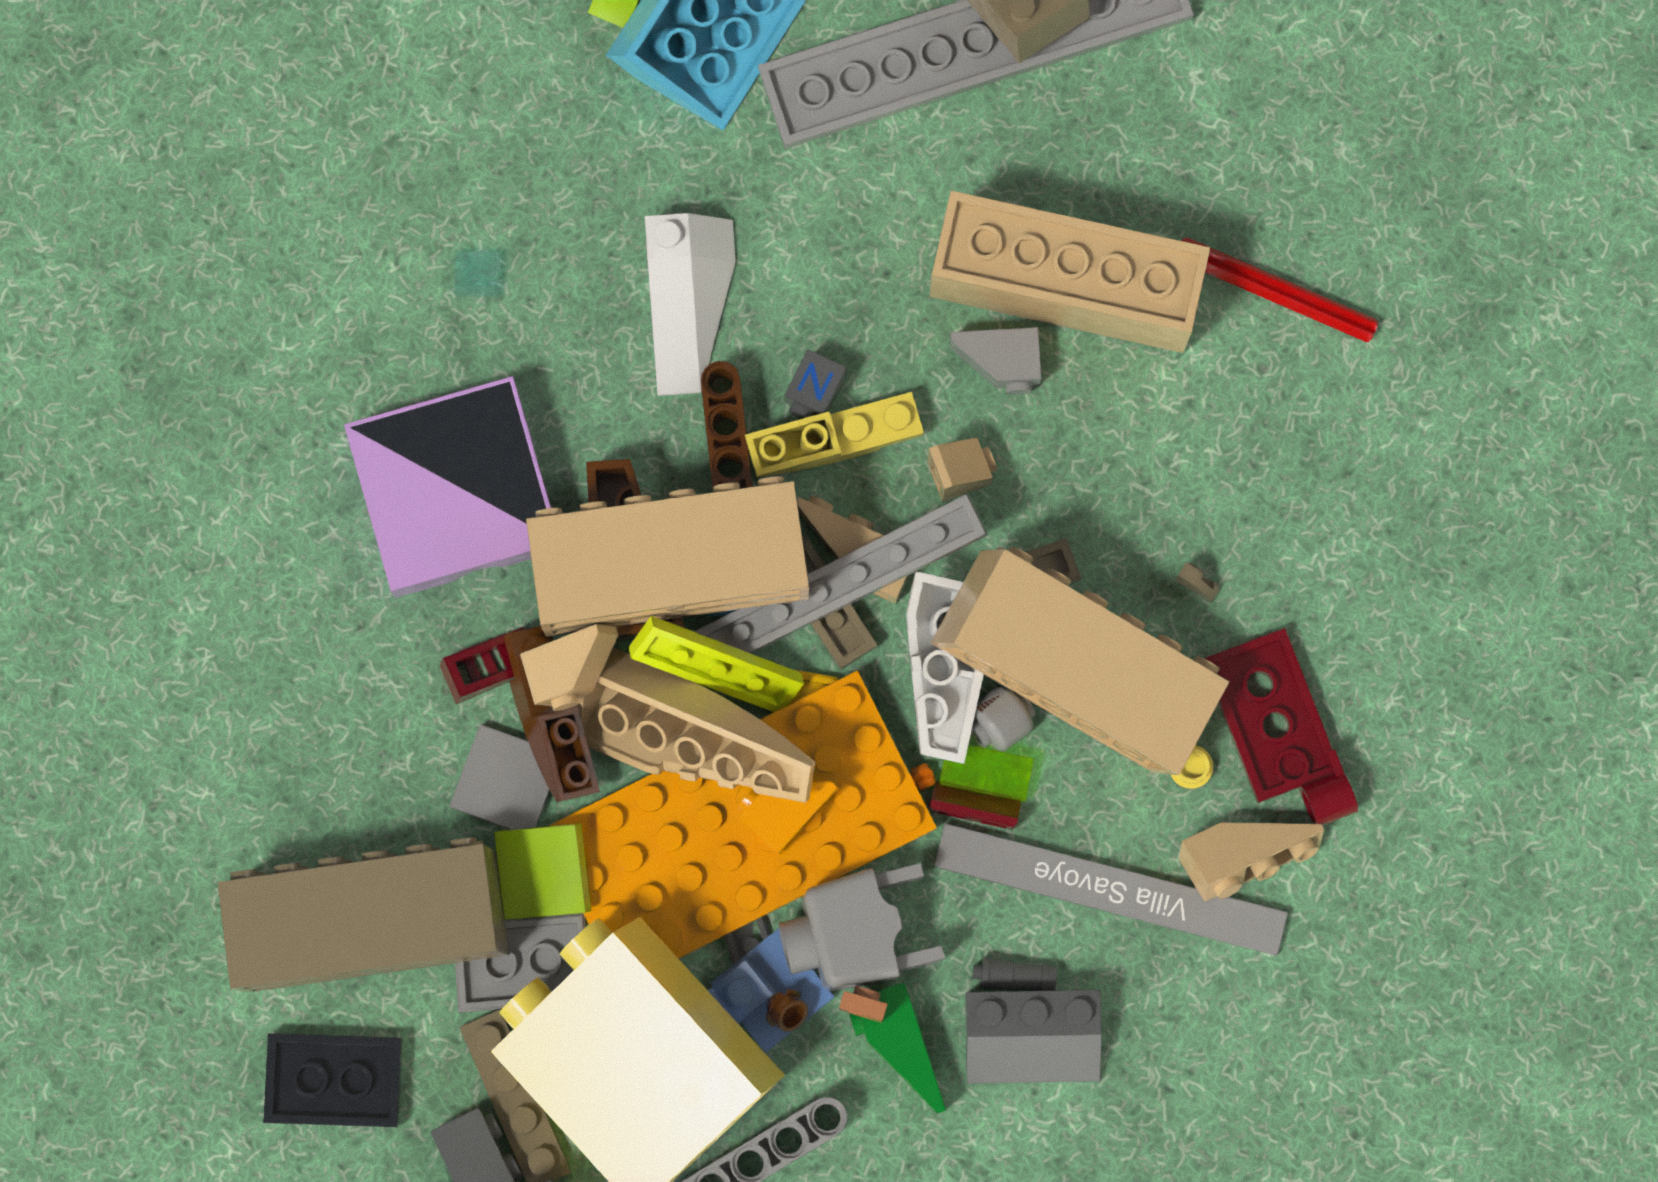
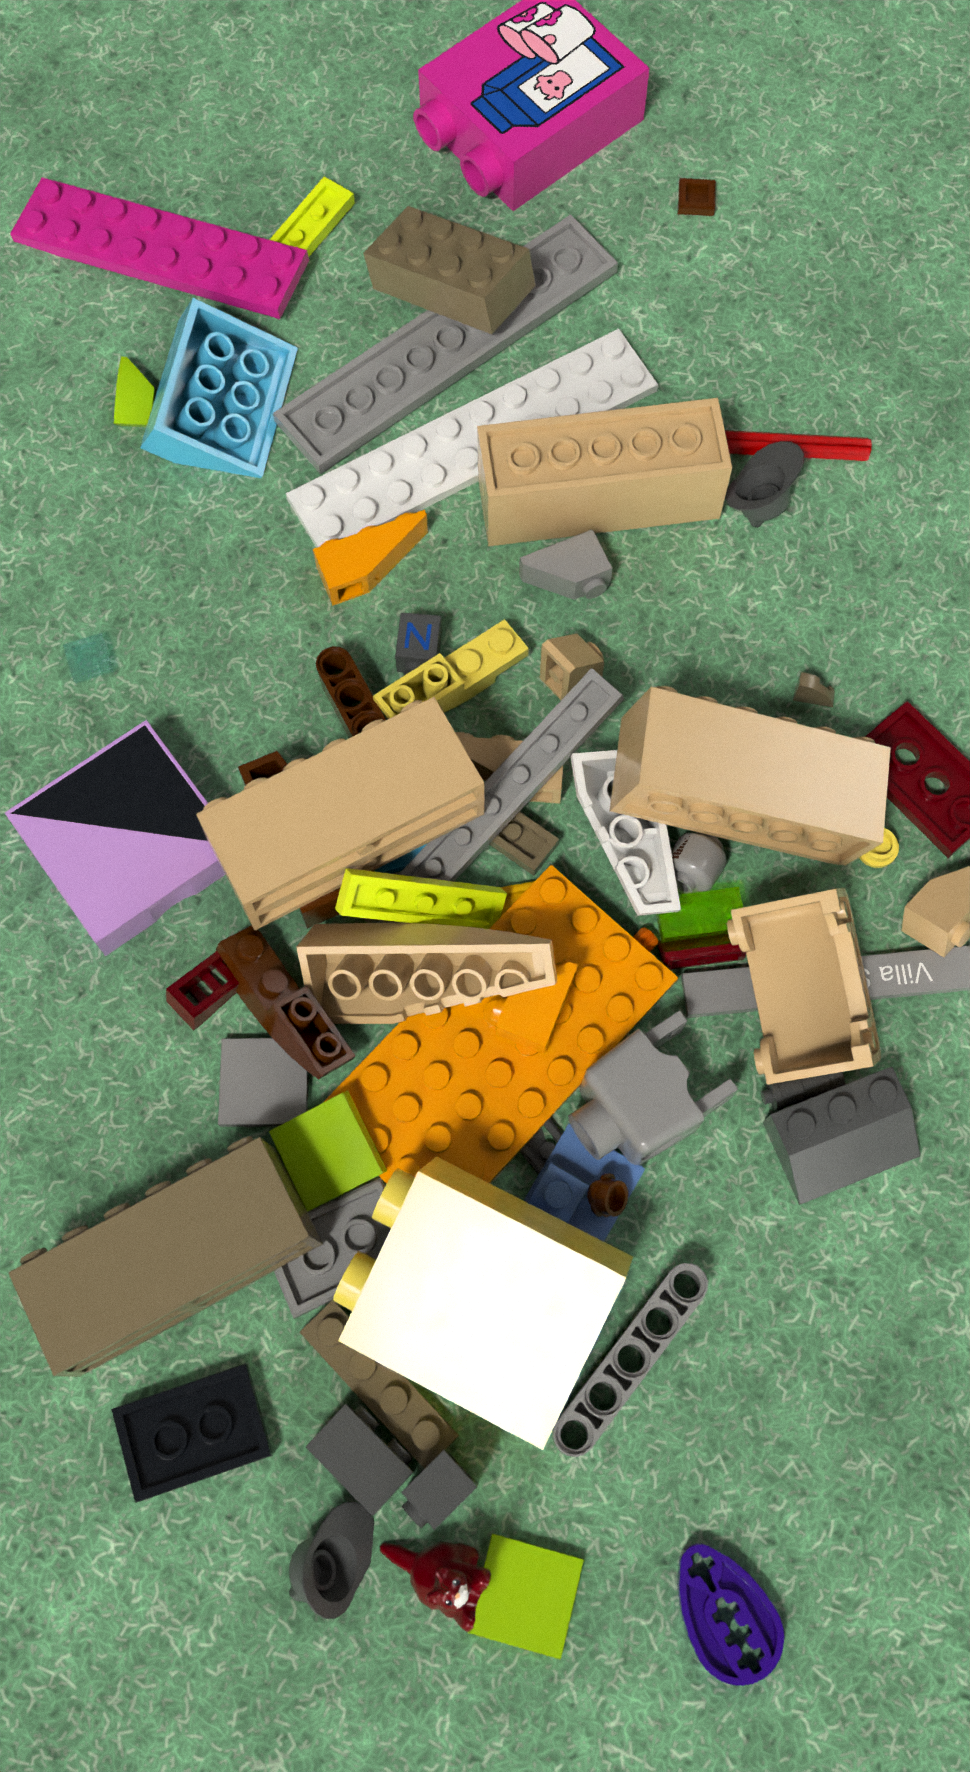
camera: 20 degrees left, 10 degrees down
(568, 666) = (284, 944): tan slope -> none
(688, 283) = (278, 605): white wedge -> none
(788, 271) = (362, 560): none -> light orange slope
(863, 1003) = (681, 1159): nougat plate -> none
(901, 1044) = (719, 1184): green slope -> none
(998, 160) = (444, 452): none -> white plate
(1055, 885) = (807, 986): none -> tan windscreen
(1240, 335) = (765, 482): none -> dark grey piece

